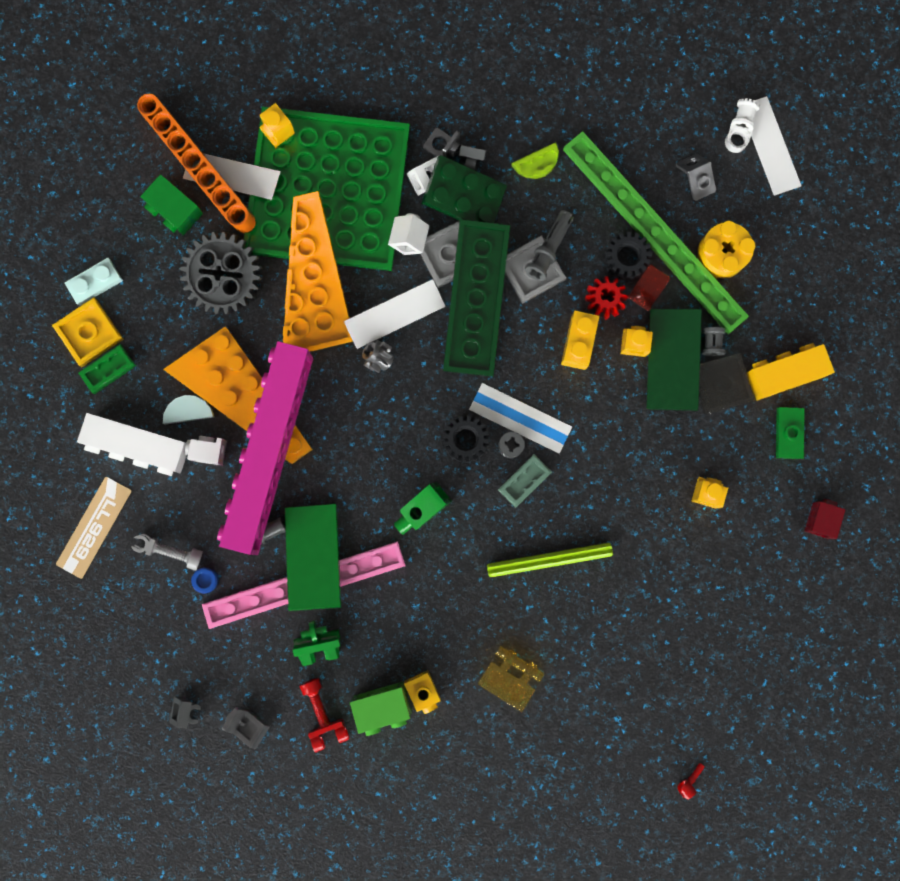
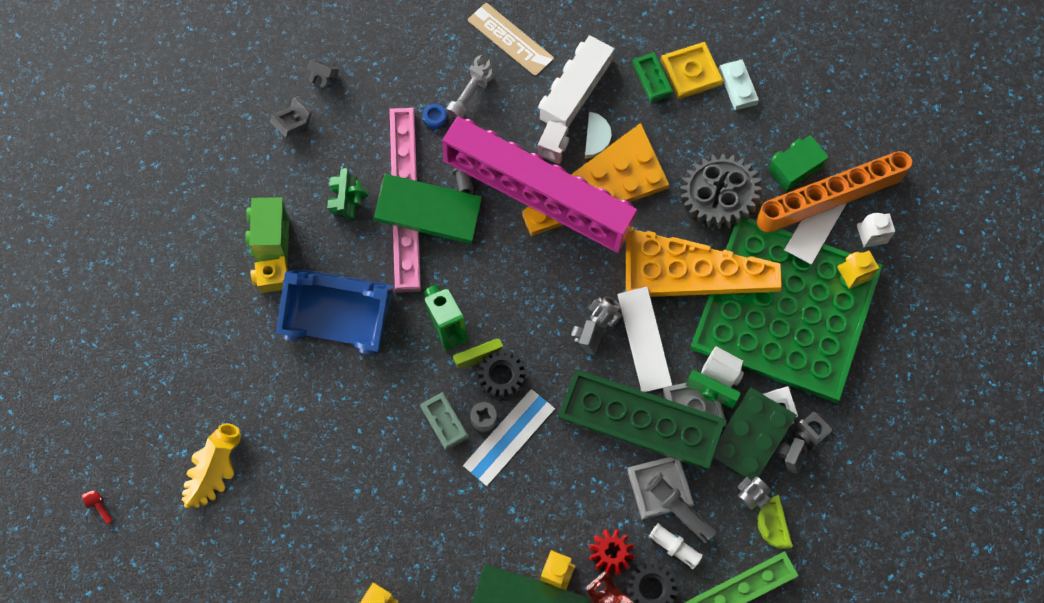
camera: 105 degrees right, 15 degrees down
(225, 119) = (874, 226): none -> white brick
(311, 689) = (259, 175): red bar -> none
(406, 366) = (588, 337): none -> dark grey tile
(432, 239) = (712, 389): none -> green plate
(440, 617) = (334, 309): none -> blue windscreen
(452, 466) = (476, 355): none -> lime tile
(507, 686) = (252, 352): clear yellow plate -> none
(518, 183) = (754, 493): none -> flat silver gear
(549, 559) = (359, 426): lime axle -> none
(580, 340) = (572, 511): yellow brick -> none
(583, 243) = (675, 546): none -> white pin
(626, 686) = (212, 466): none -> yellow plant

